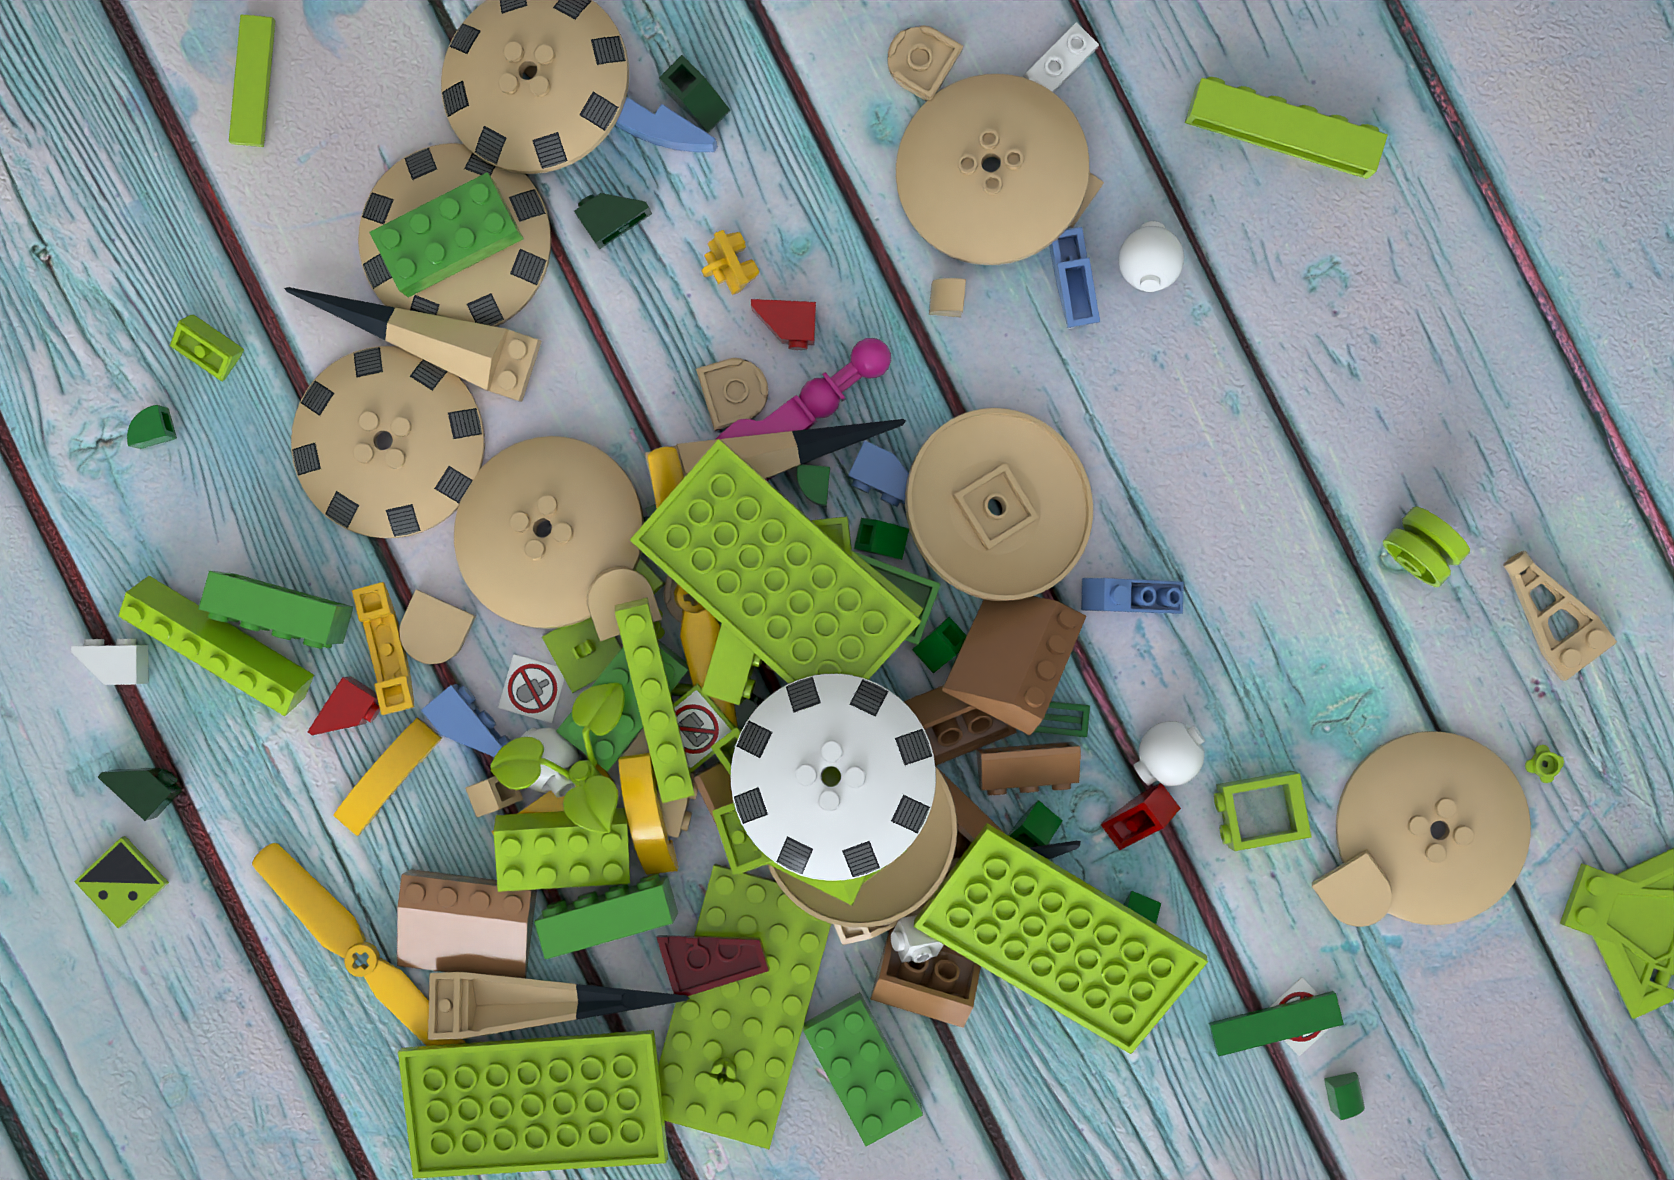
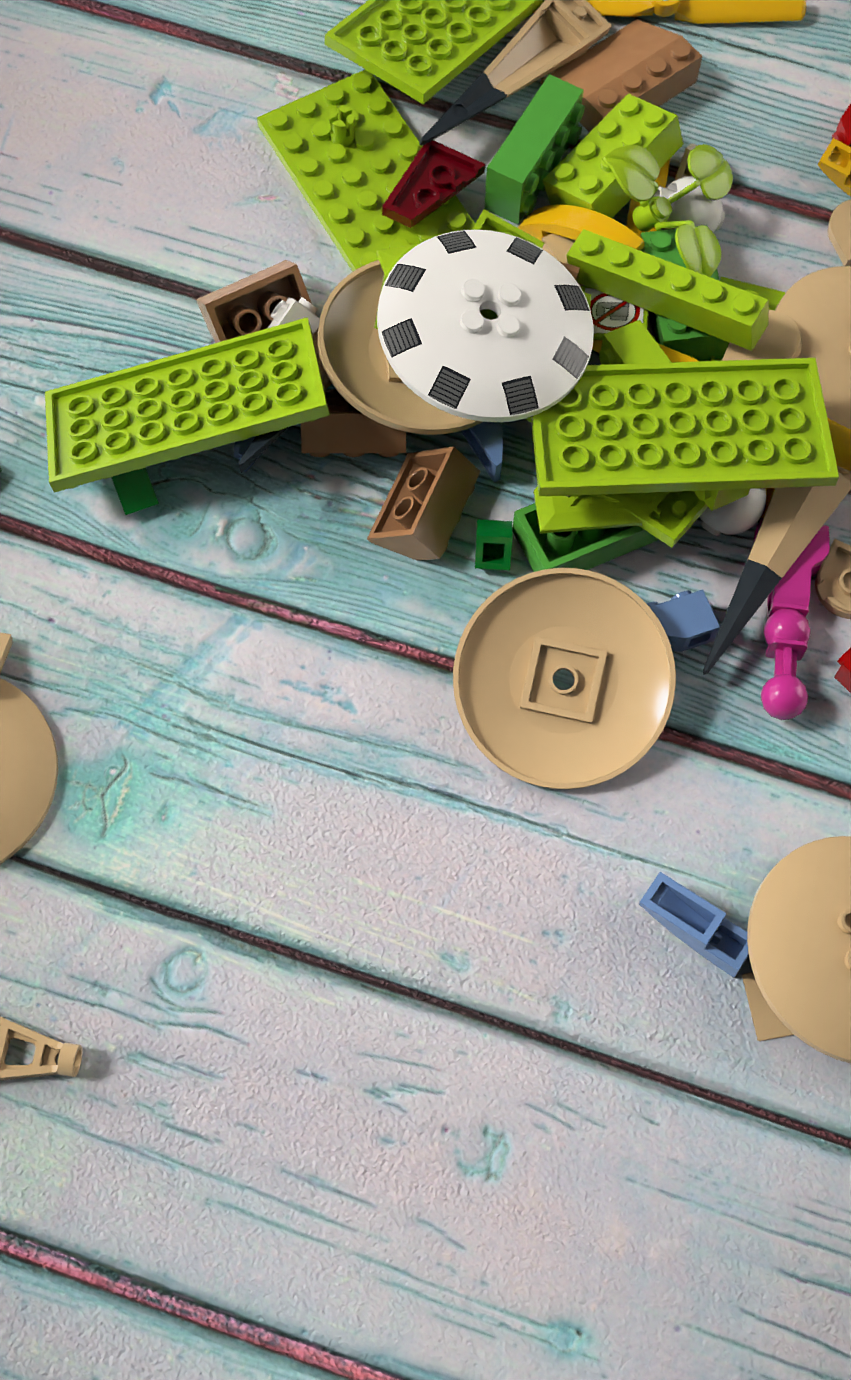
camera: 130 degrees right, 20 degrees down
(386, 776) = (783, 119): yellow slope -> none
(461, 720) = (772, 188): medium blue slope -> none
(532, 688) = (752, 256): sticker -> none
(814, 483) = (717, 567): green brick -> none
(862, 1069) = (242, 214): bright green brick -> none
(881, 538) = (628, 570): green brick -> none
(947, 297) = (776, 809): tan brick -> none
(1015, 659) = (428, 568): medium nougat slope -> none
(1028, 767) = (335, 514): medium nougat slope -> none
(1036, 826) = (280, 480): green brick -> none
(1084, 720) = (353, 587): green tile -> none
(1132, 595) = (380, 717): medium blue slope -> none
(1141, 816) = (204, 562): red slope -> none
(1151, 257) = (654, 1000): white brick -> none
(1170, 754) = (228, 619): white brick -> none
(1262, 811) = (108, 651): lime window -> none
(1286, 127) = (660, 1248): lime brick -> none
(1426, 546) = (169, 982): lime wheel -> none

